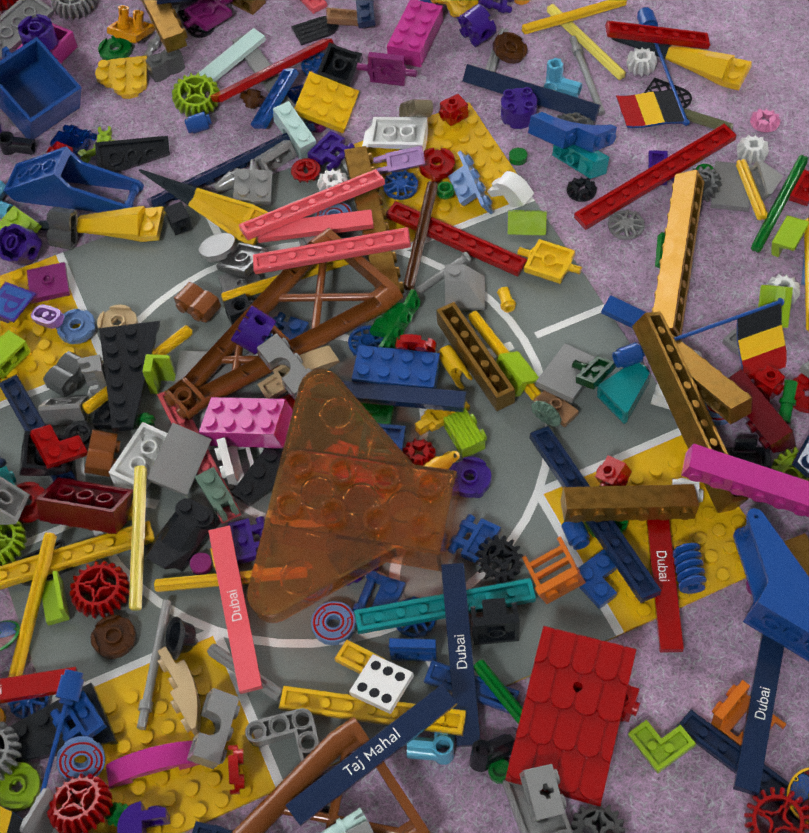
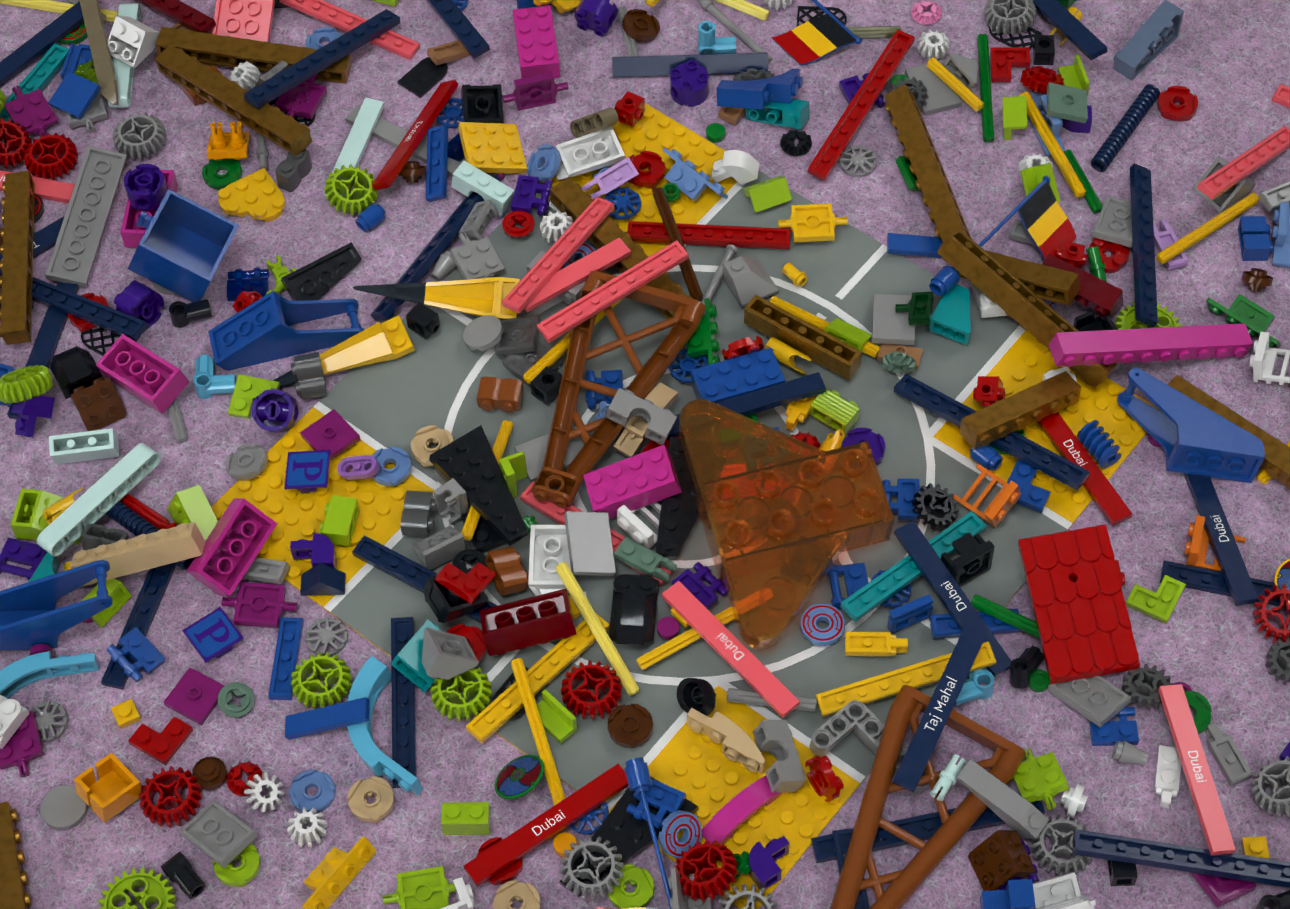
camera: 30 degrees left, 0 degrees up
(146, 704) = (701, 765): light grey bar -> none
(253, 330) = (590, 395): dark purple brick -> none
(357, 128) = (552, 162): none -> medium blue tile
(381, 684) = (903, 652): white tile -> none
(539, 146) = (731, 114): none -> medium nougat plate
(542, 806) = (1092, 675): light grey brick -> none

